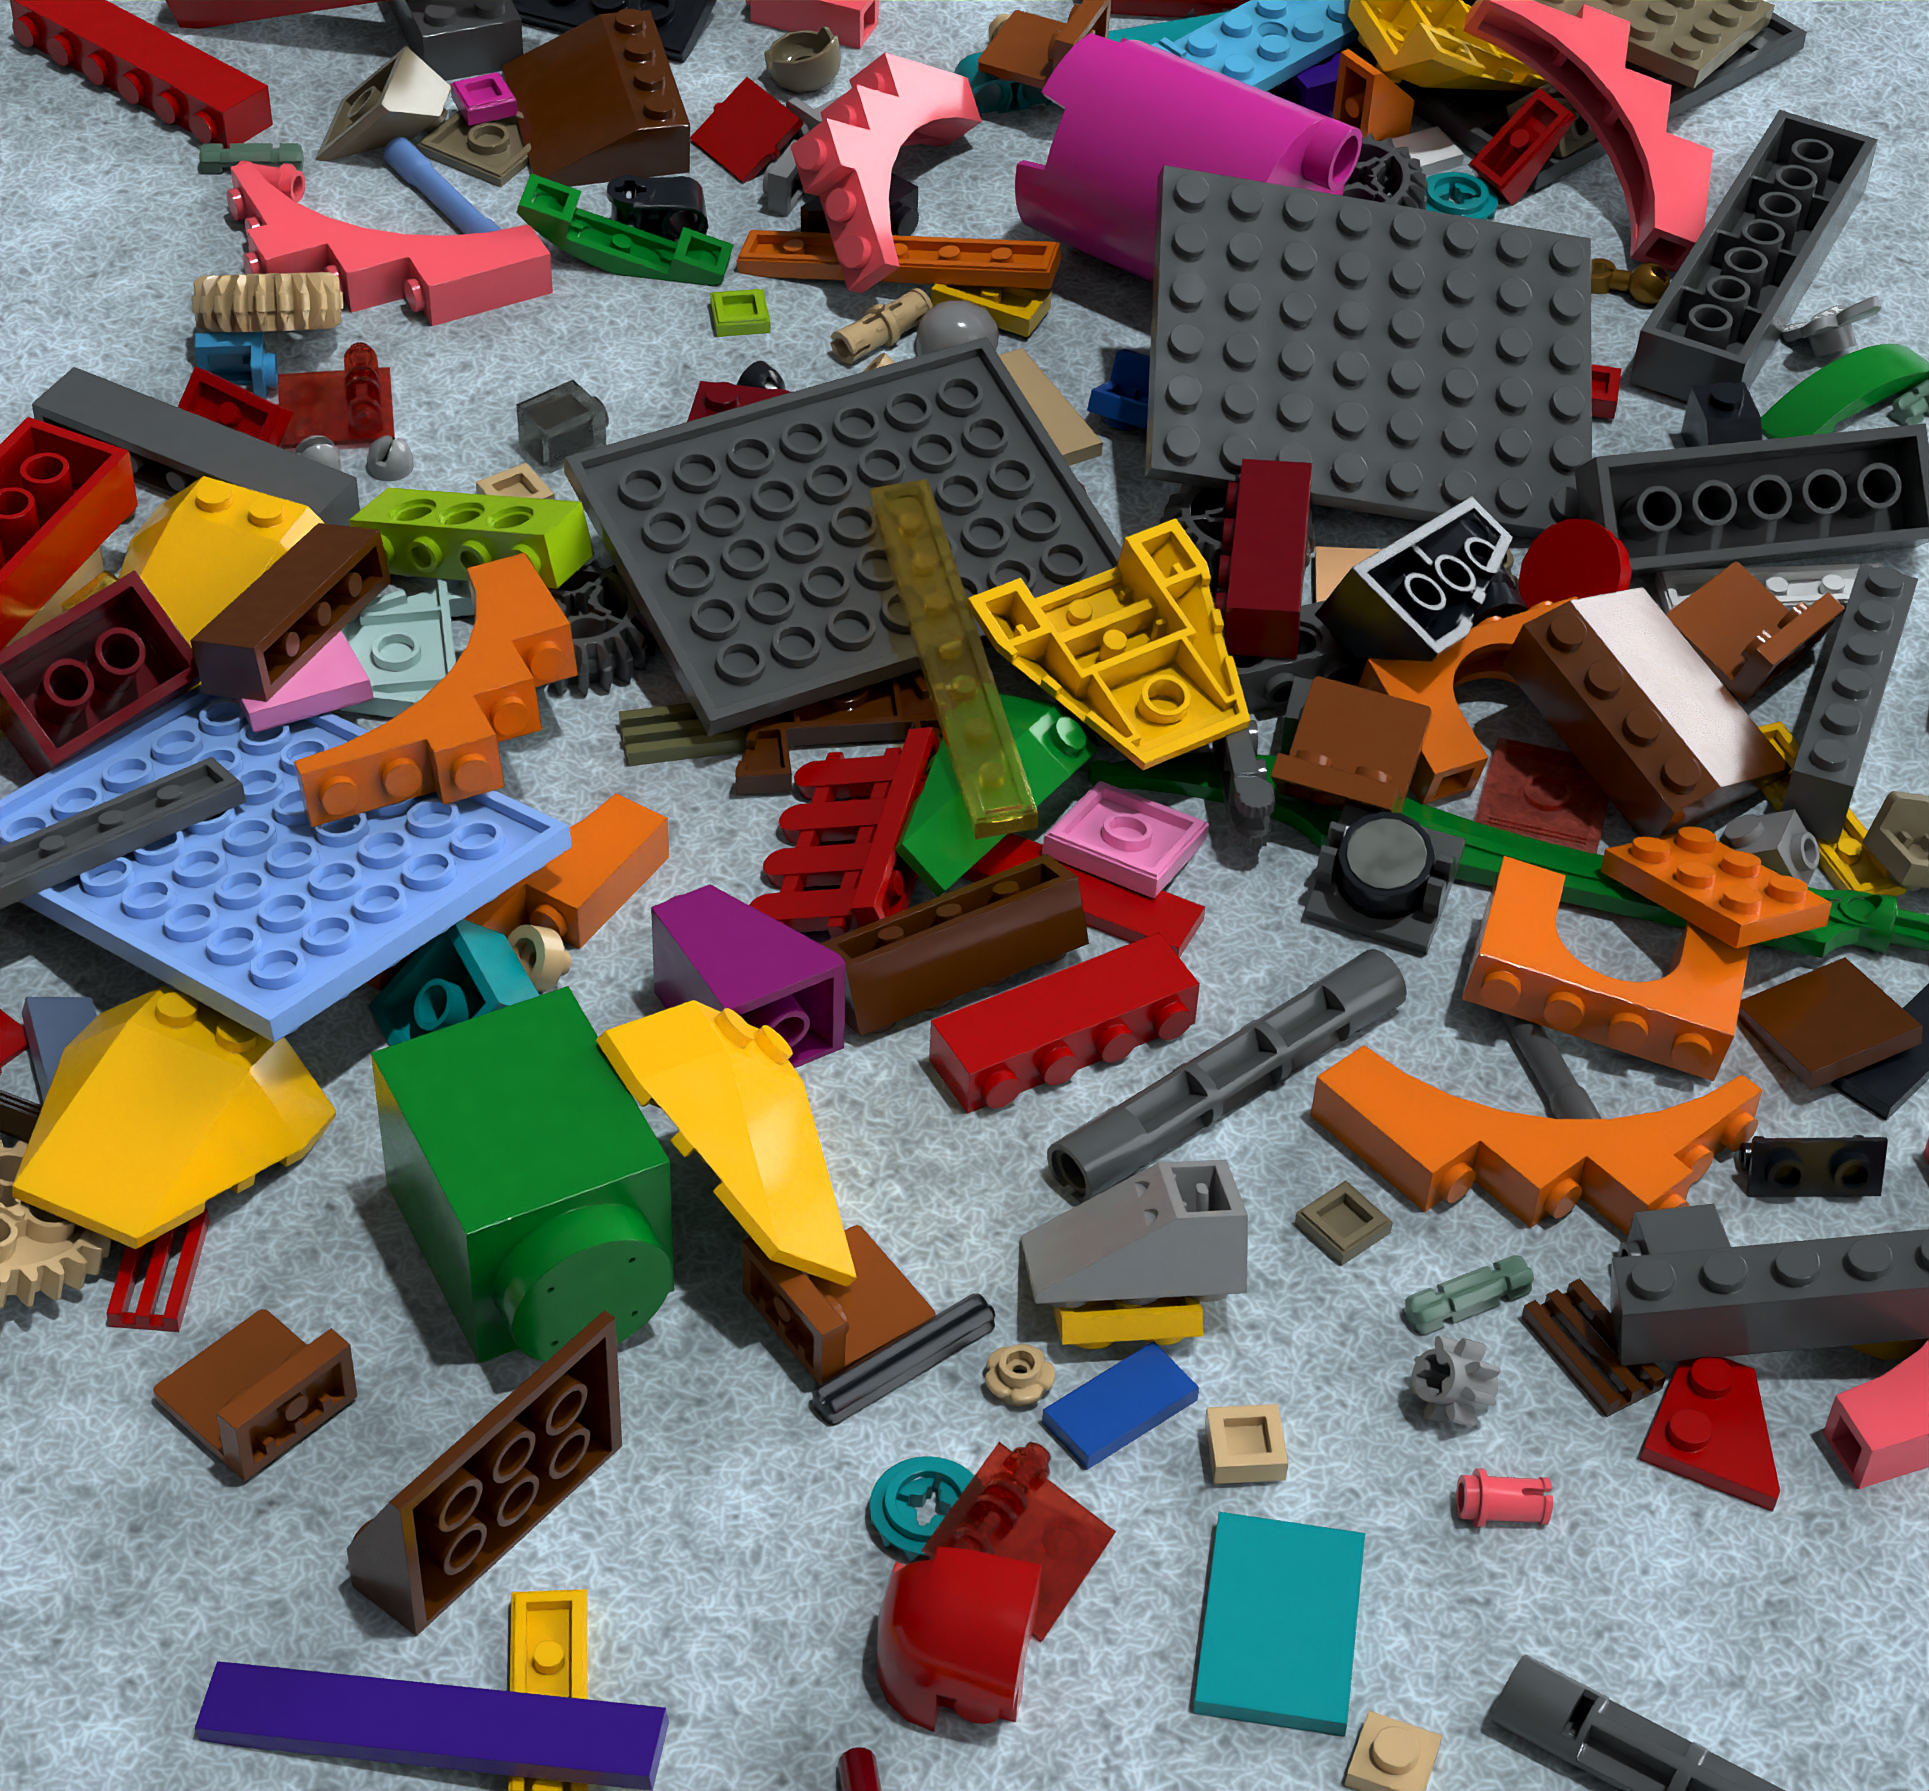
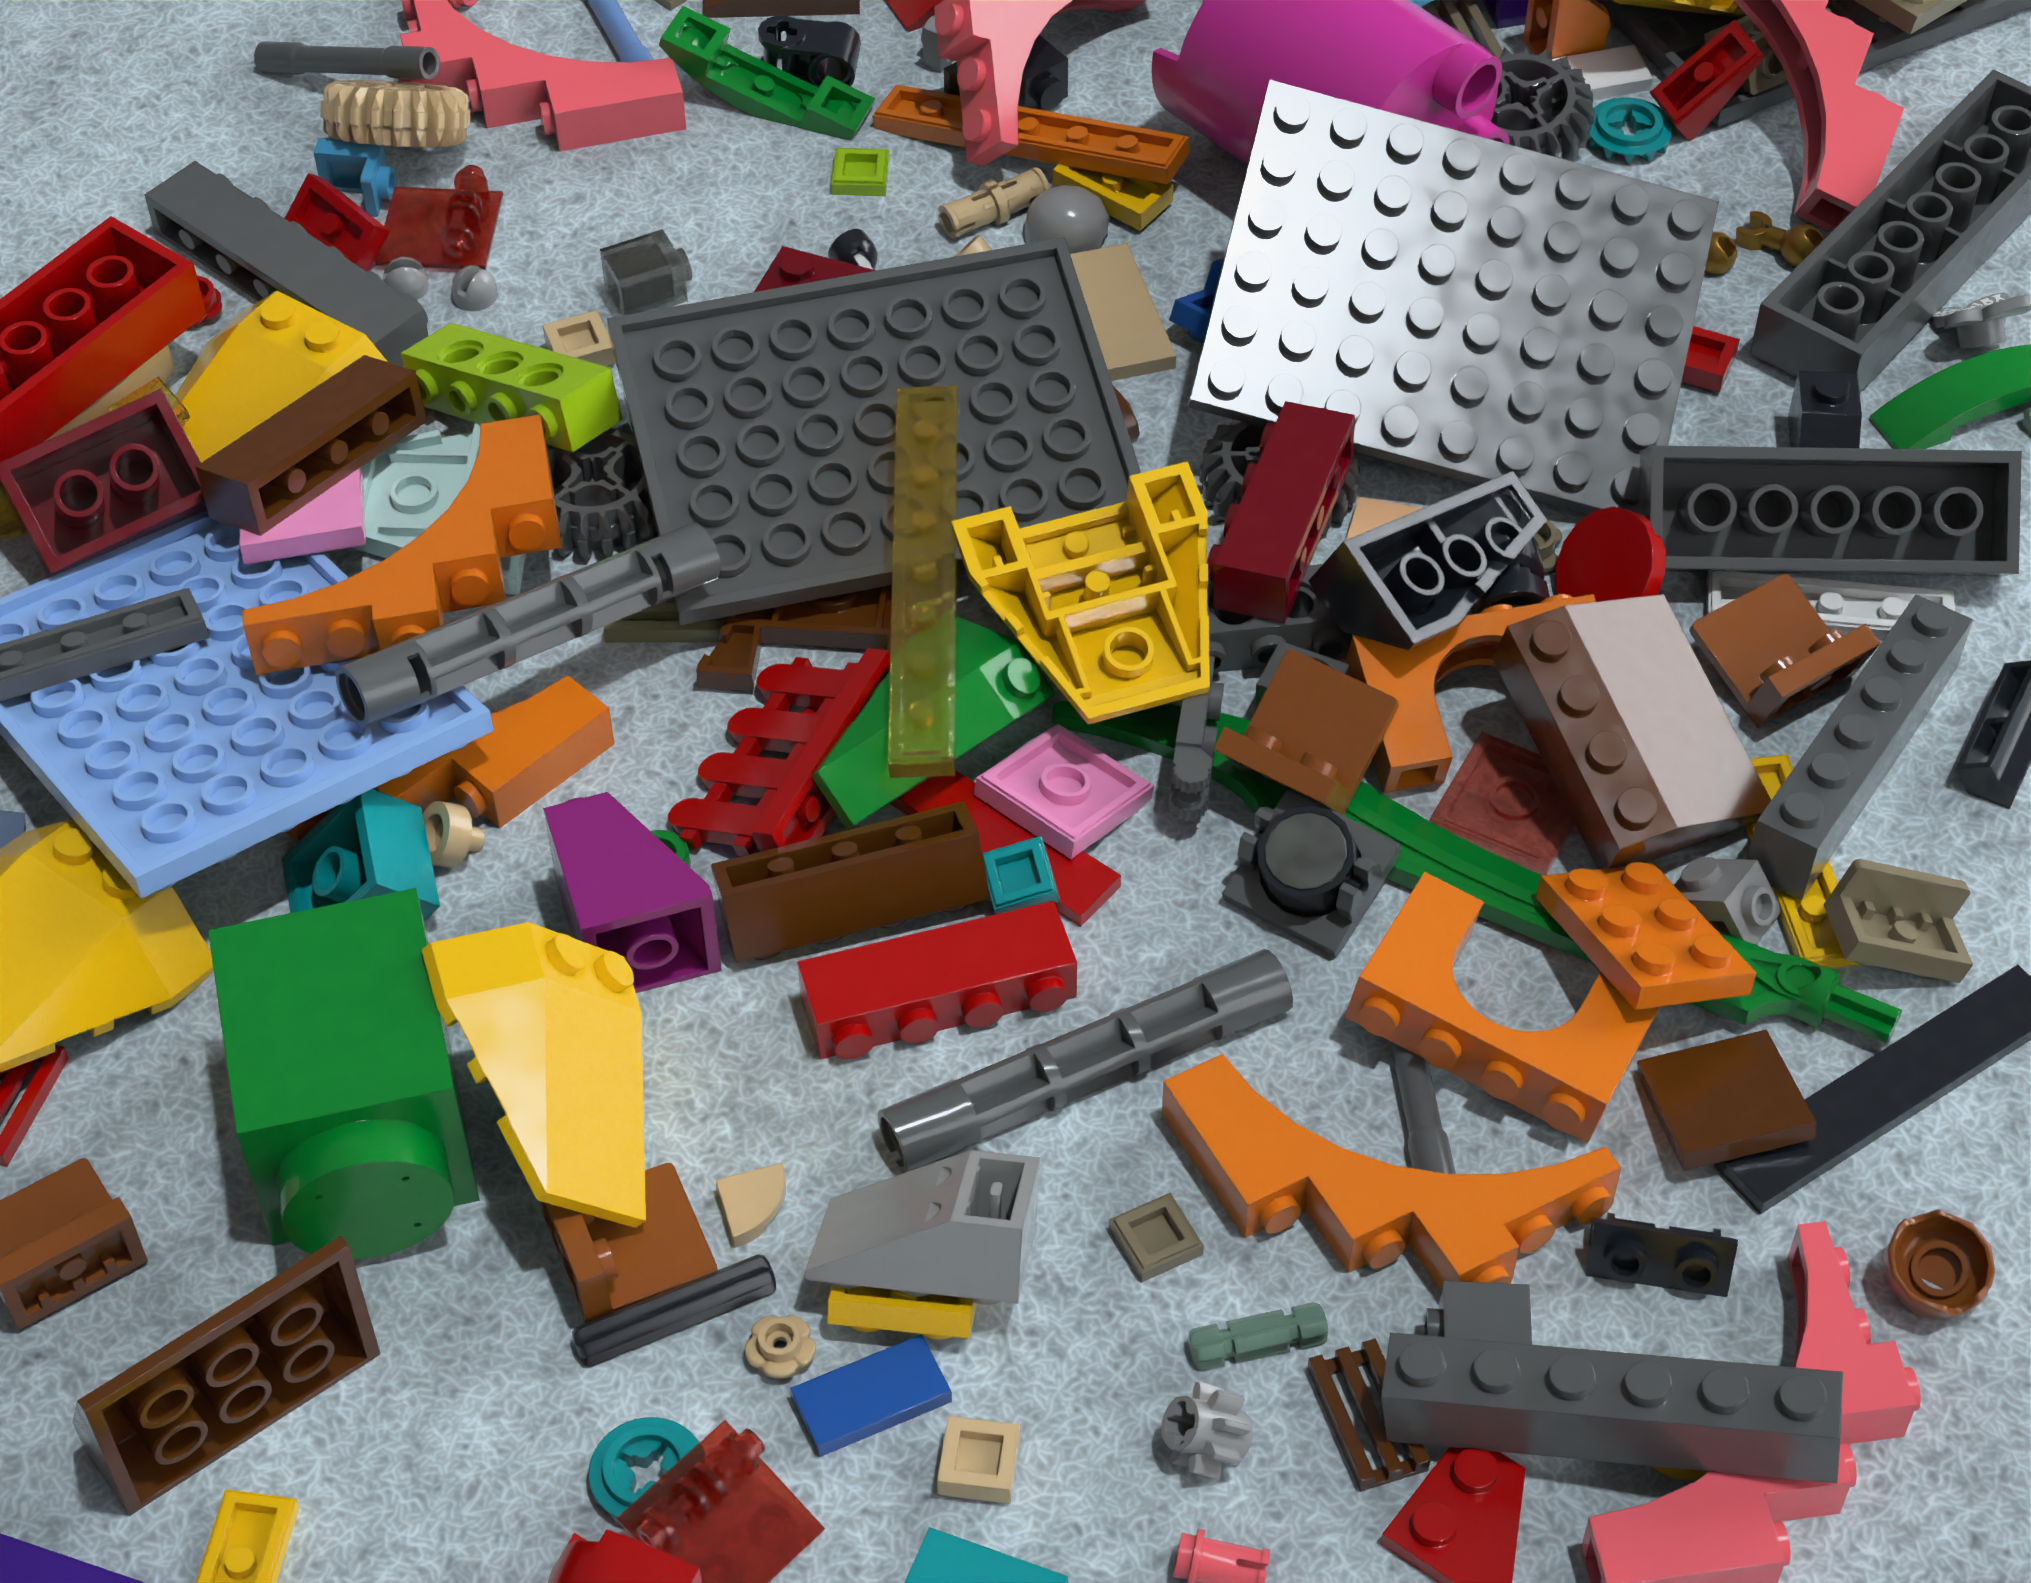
camera: 15 degrees right, 5 degrees up
(250, 254) = (393, 61): none -> dark grey piece
(579, 742) = (526, 624): none -> dark grey piece
(945, 1249) = (751, 1201): none -> tan tile
(1115, 918) = (1020, 875): none -> teal tile

